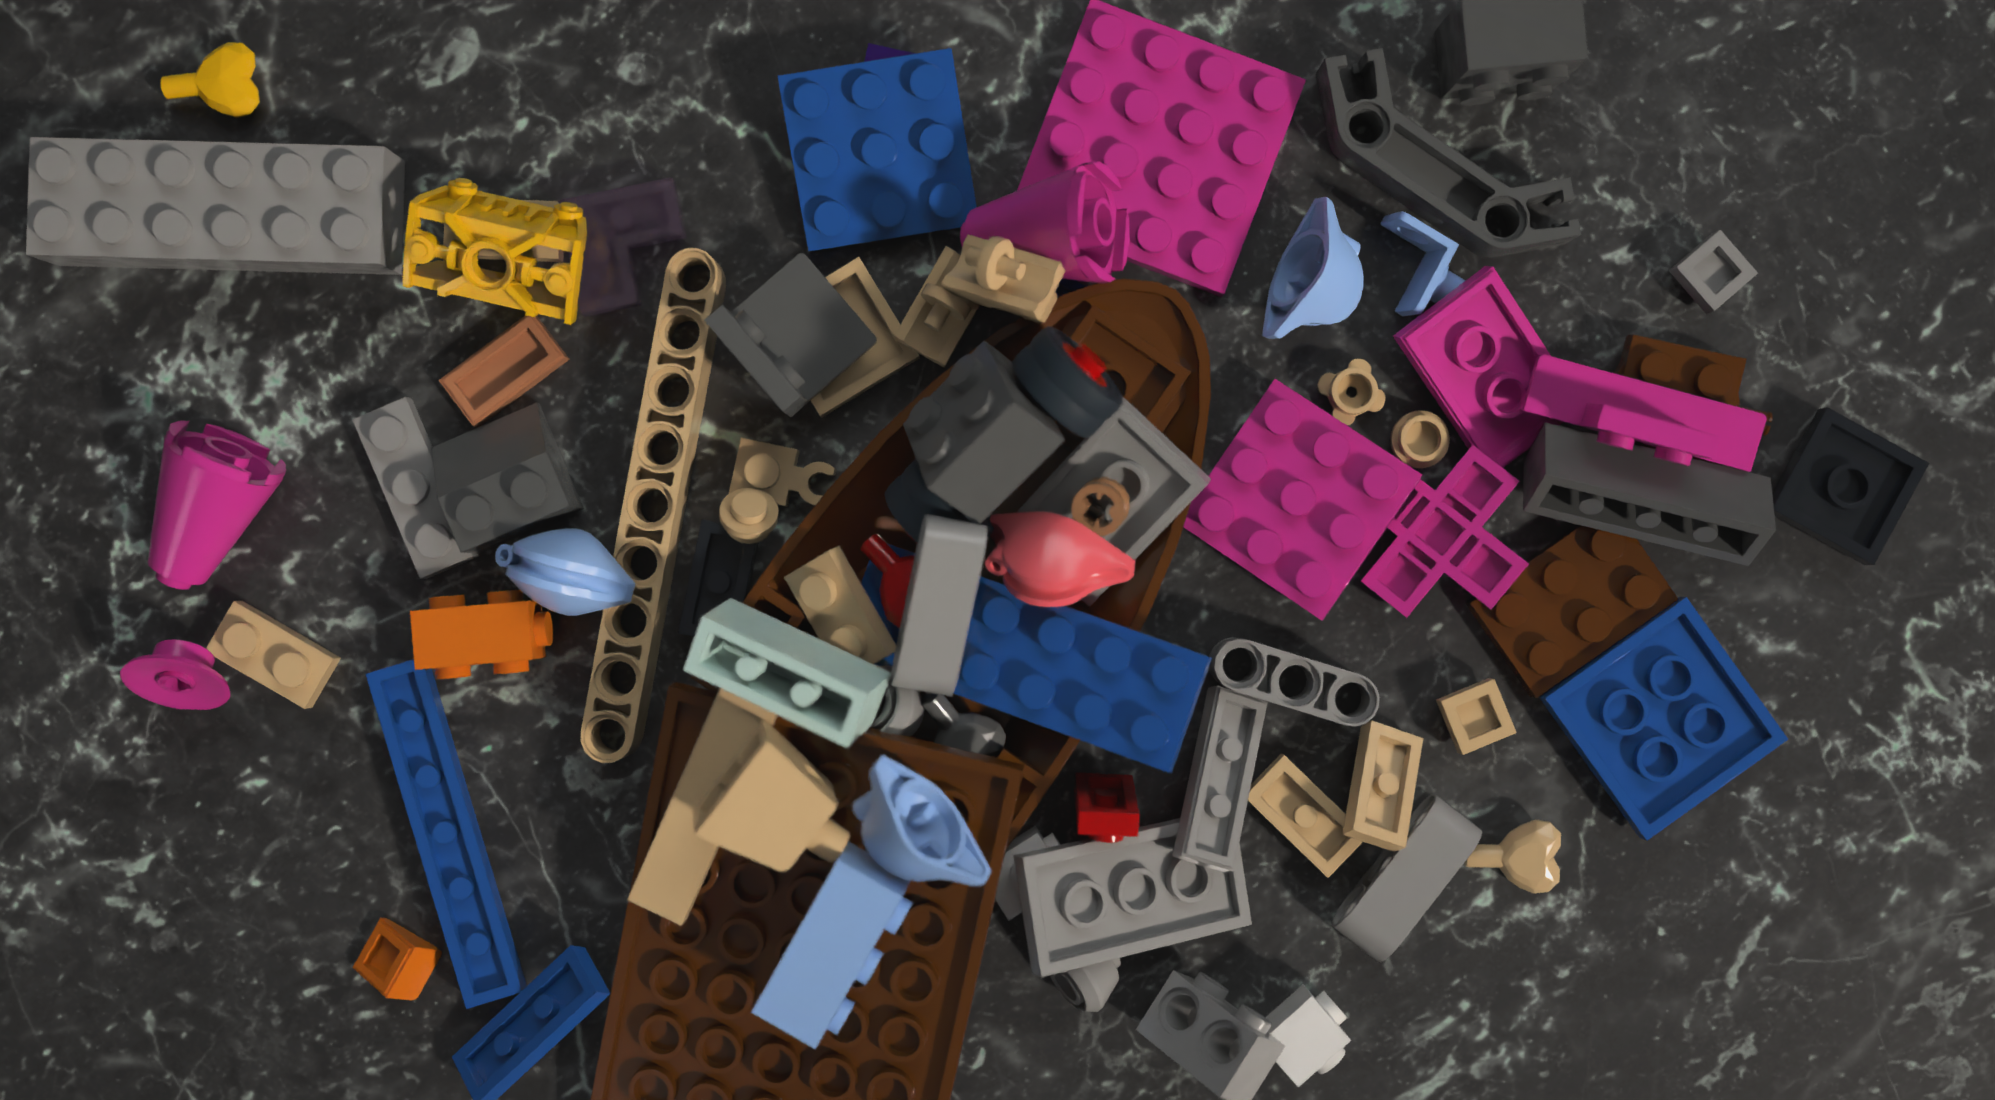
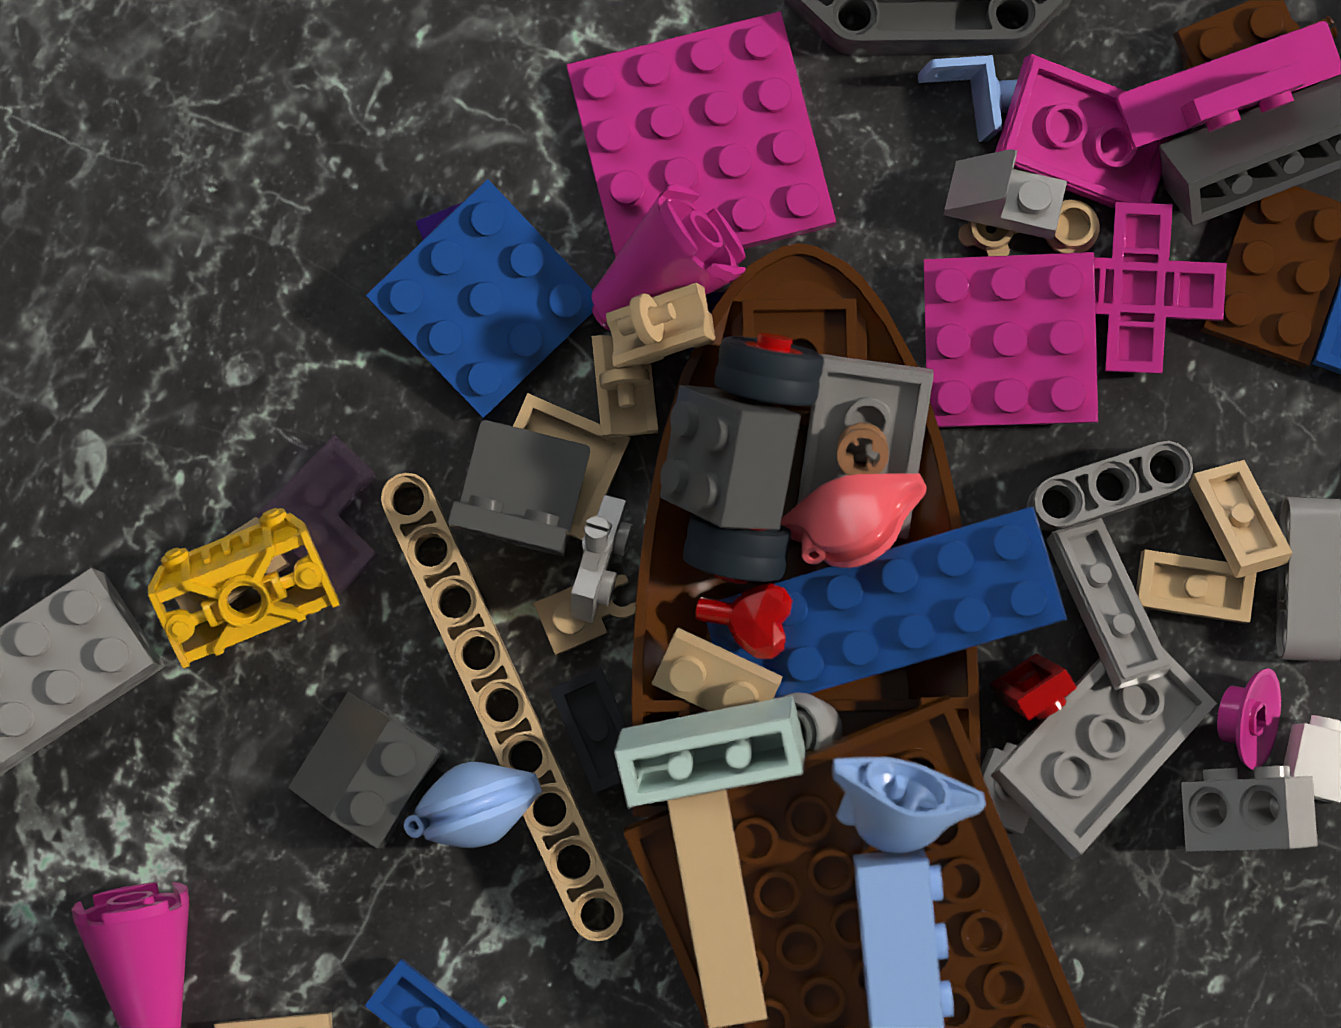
camera: 30 degrees left, 5 degrees down
(405, 472) = (296, 829): light grey plate -> none
(500, 633) = (450, 894): orange brick -> none
(503, 370) = (303, 683): nougat tile -> none
(748, 515) = (585, 658): tan plate -> none
(771, 805) = (773, 864): tan torso -> none
(826, 428) = (603, 539): none -> light grey plate
(938, 605) = (792, 615): light grey beam -> none
(963, 730) = (877, 705): dark grey rock -> none
(1088, 986) = (1120, 843): light grey cone -> none
(1271, 957) = (1251, 717): none -> dark pink piece
(1316, 276) = (897, 157): light blue hat -> none
(1376, 368) = (996, 195): none -> light grey slope
(1476, 716) = (1272, 412): tan plate -> none

